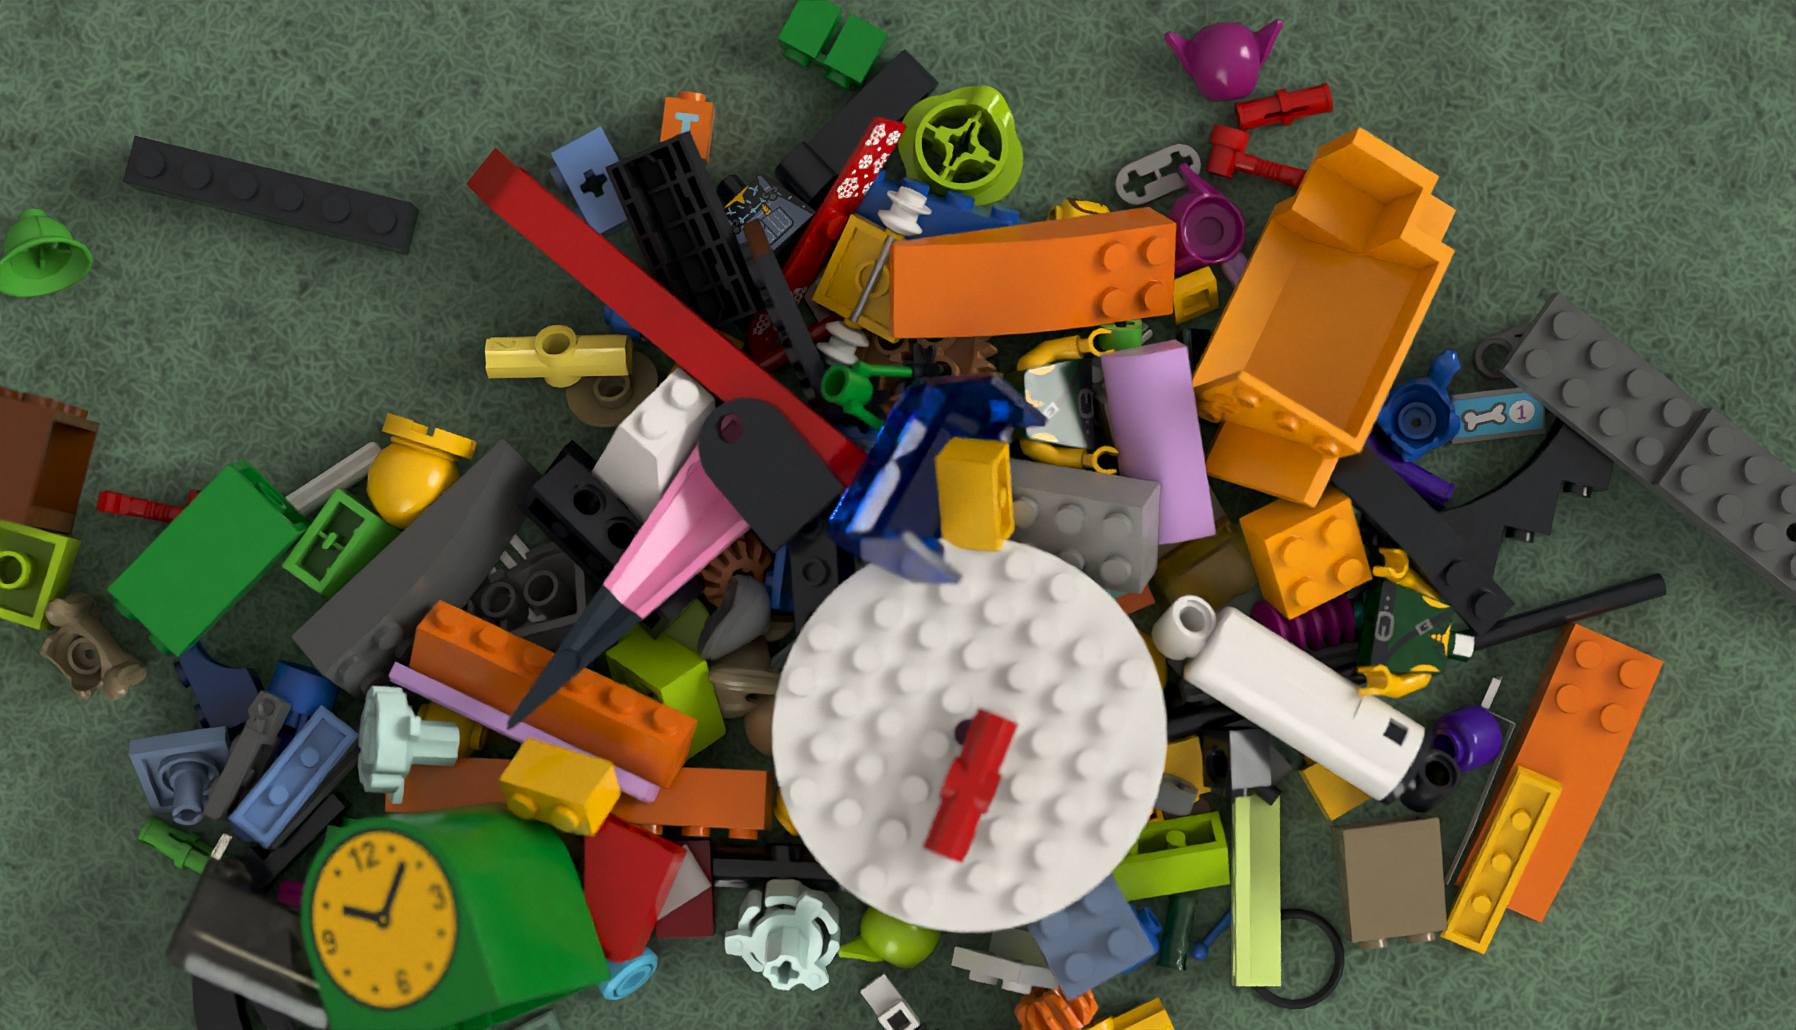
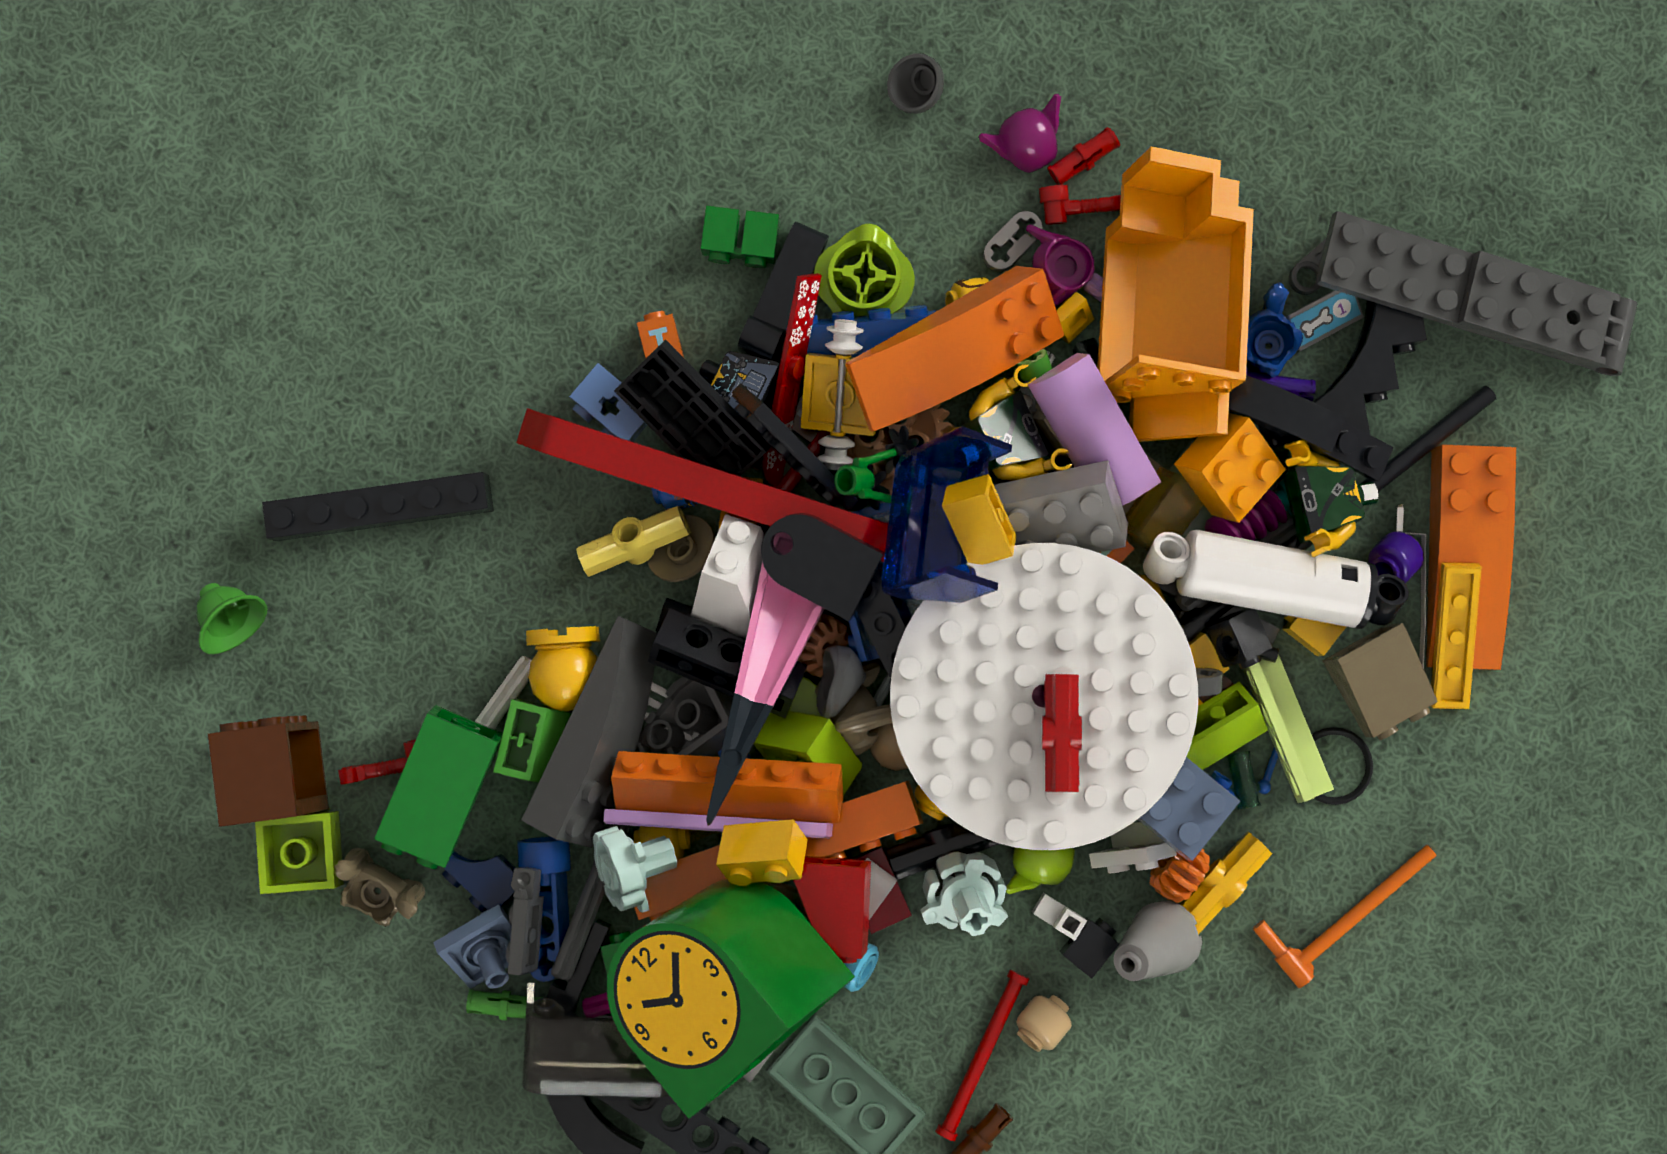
camera: 25 degrees left, 0 degrees up
(293, 777) = (563, 921): medium blue tile -> none

